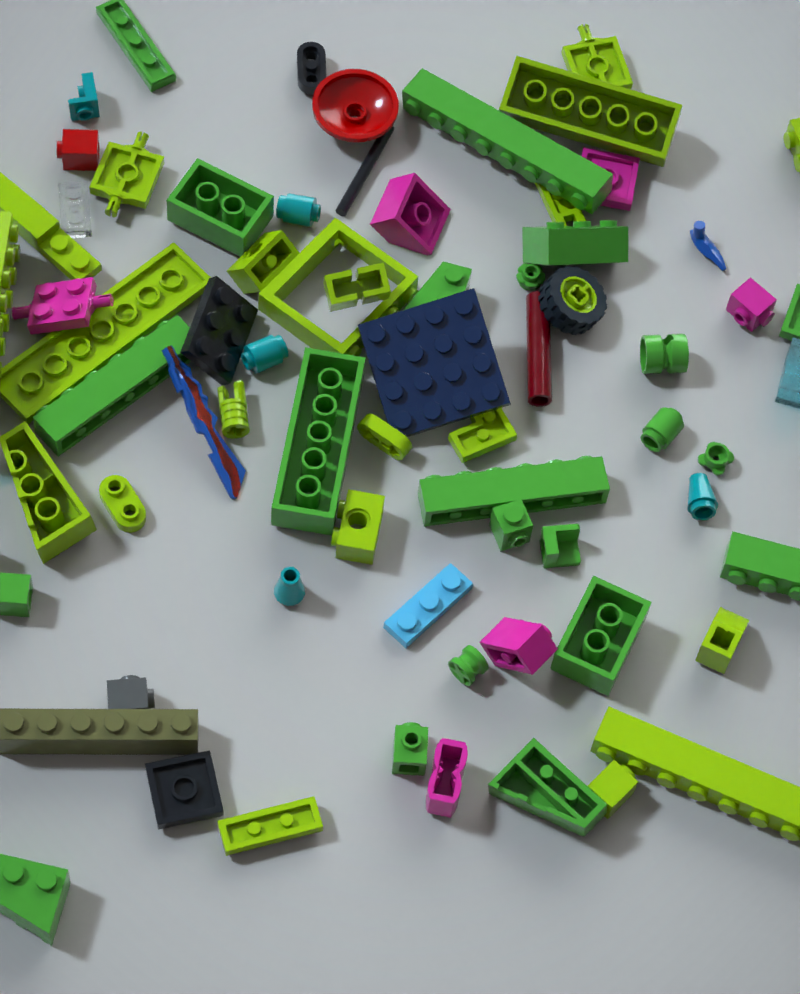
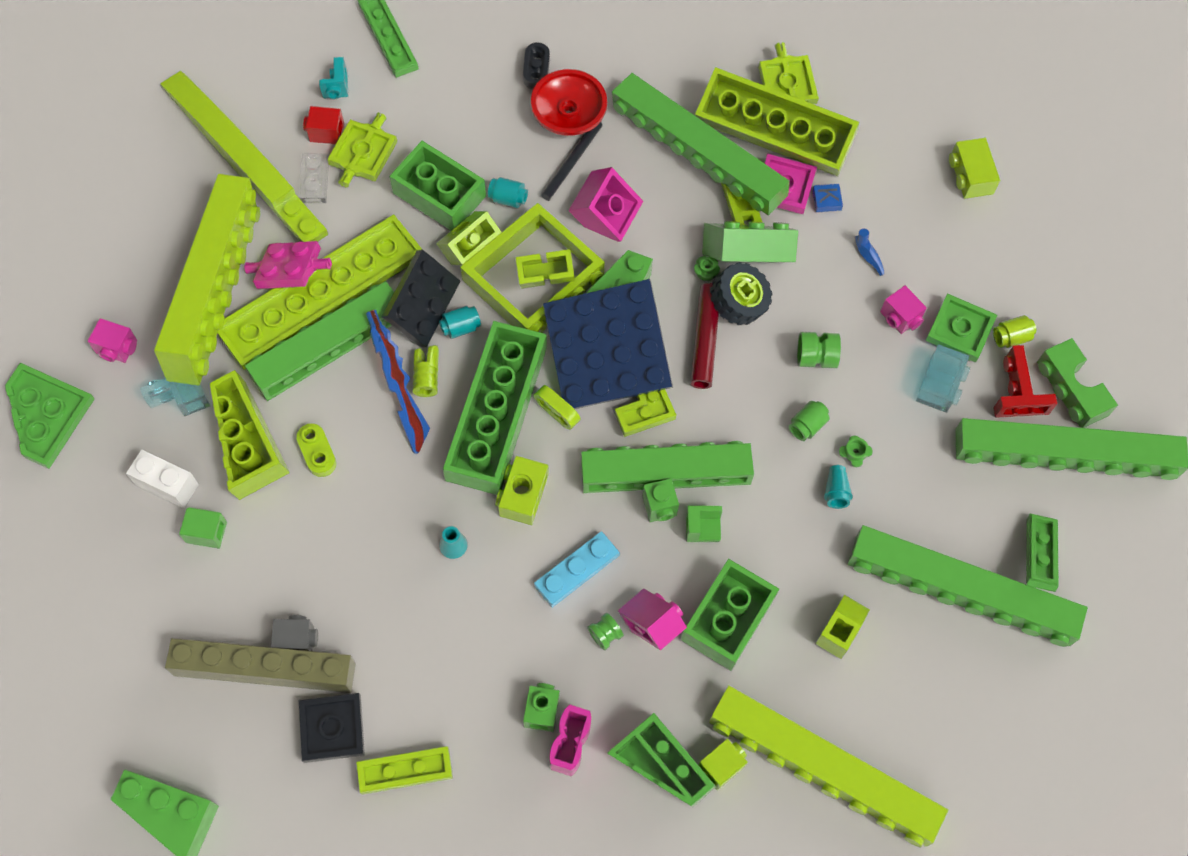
camera: 10 degrees right, 5 degrees up
(654, 191) = (827, 198): none -> blue tile

